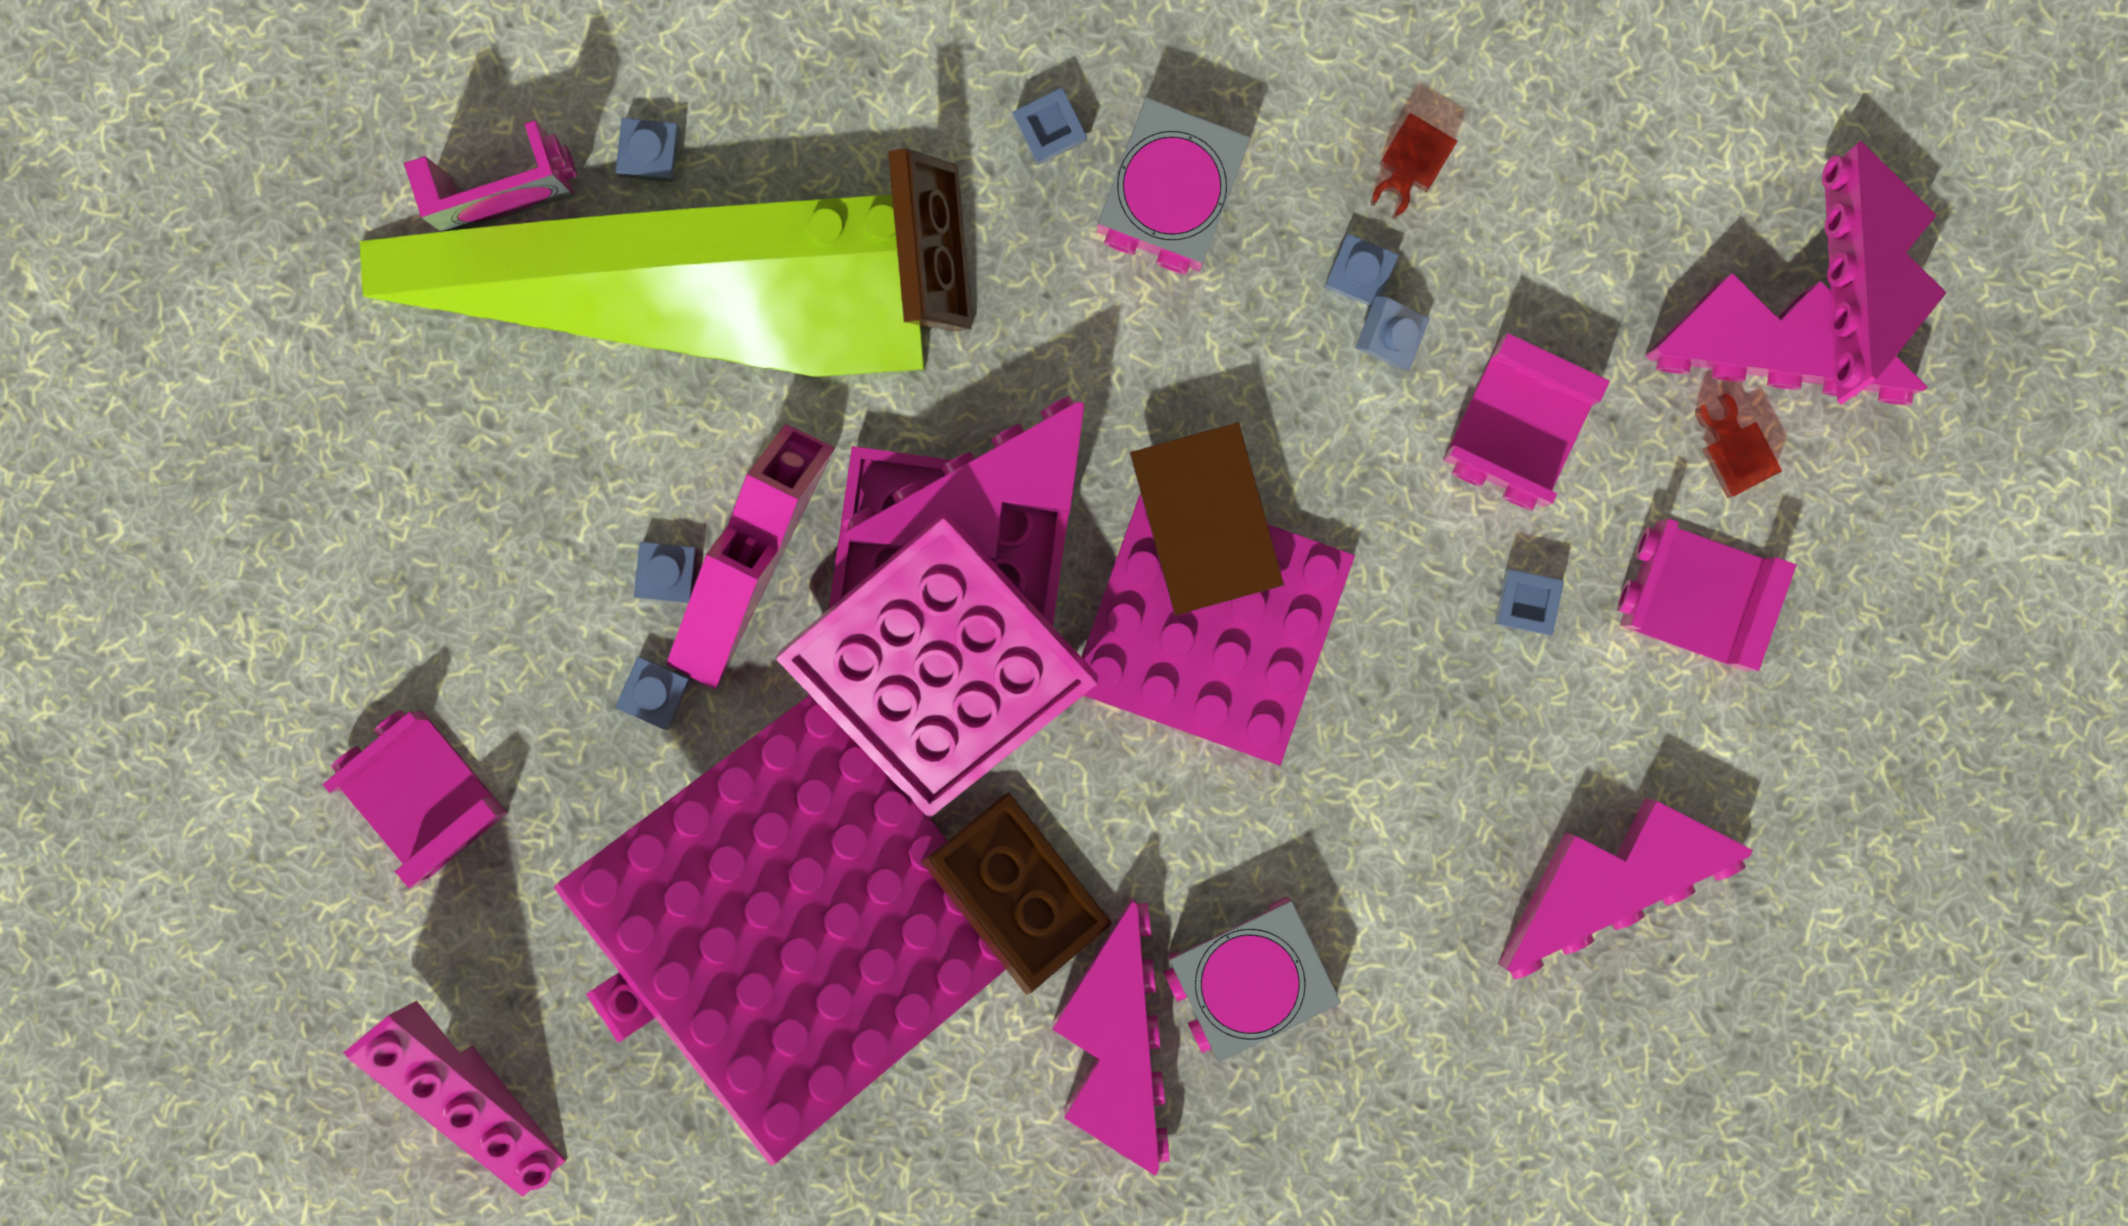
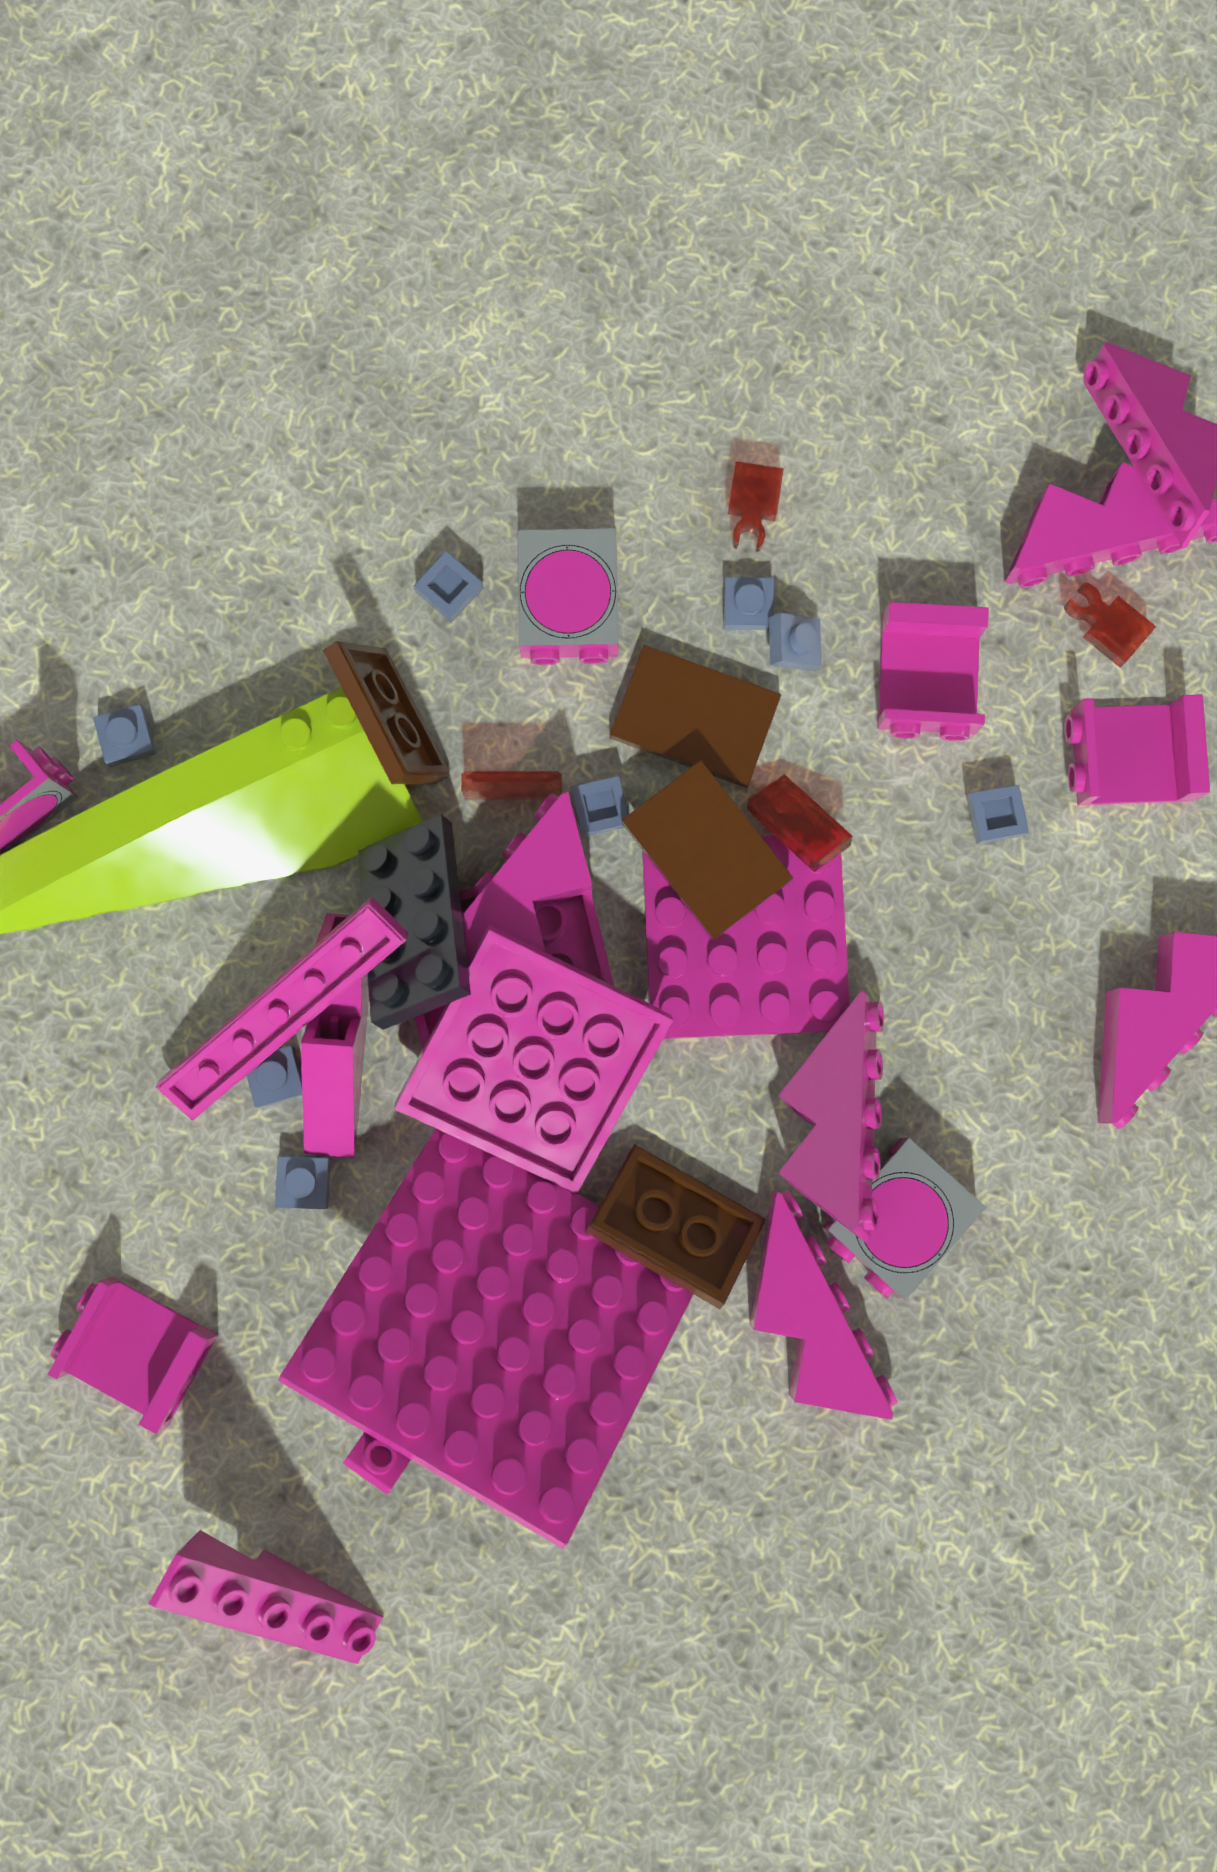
camera: 30 degrees left, 5 degrees down
(701, 510) = (283, 1008): none -> dark pink tile
(870, 473) = (419, 887): none -> black plate
(1031, 367) = (510, 785): none -> clear red tile
(1115, 425) = (599, 806): none -> sand blue plate
(1237, 834) = (838, 1099): none -> dark pink slope
(1254, 369) = (695, 715): none -> reddish brown tile
(1315, 528) = (799, 822): none -> clear red tile

